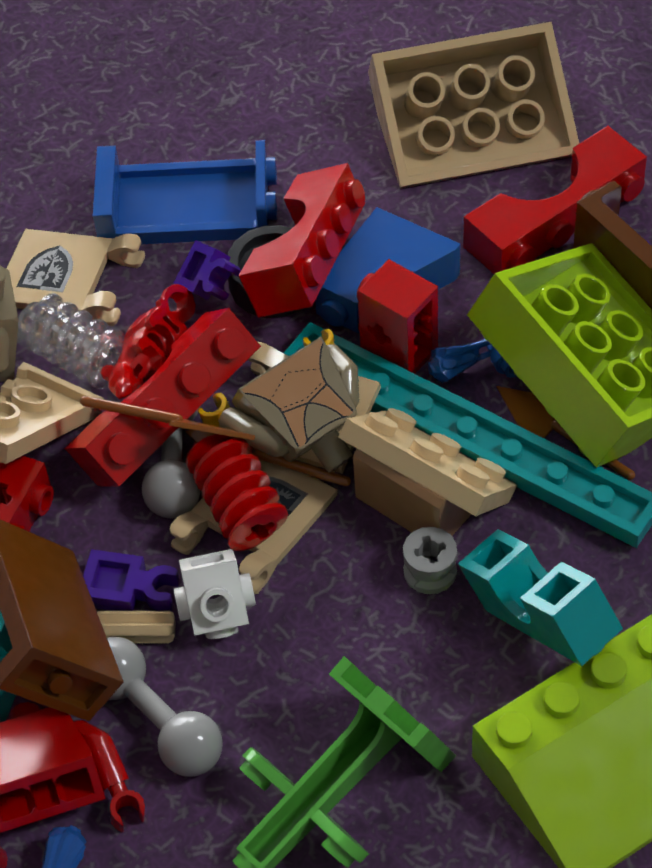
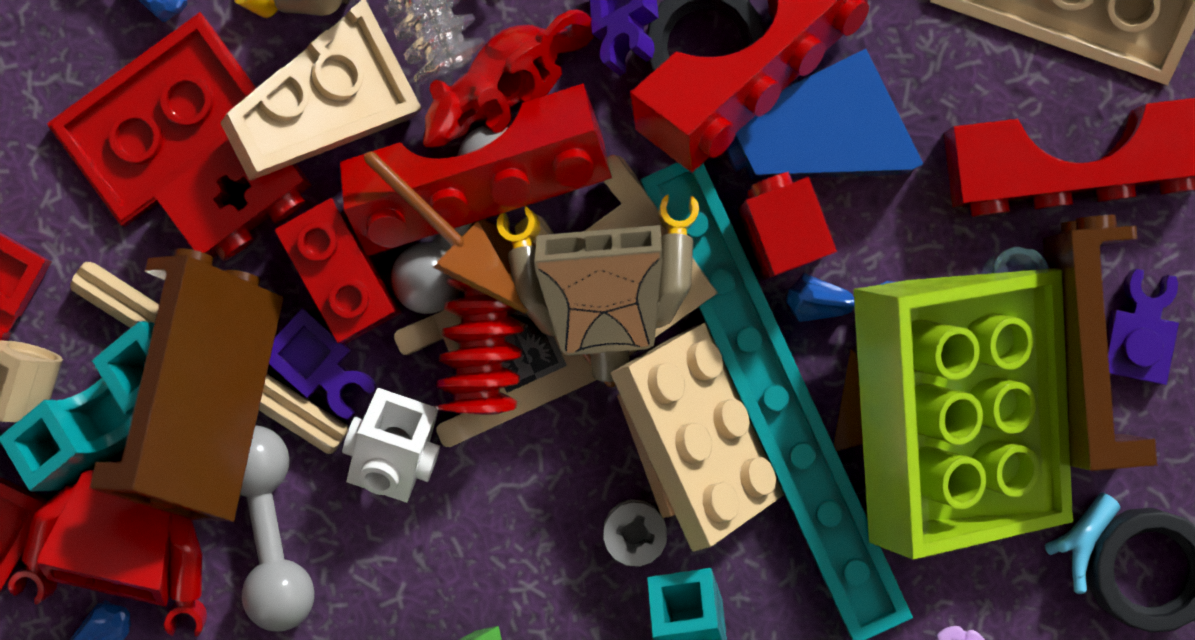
camera: 30 degrees right, 35 degrees up
(103, 510) = (337, 271): none -> red brick

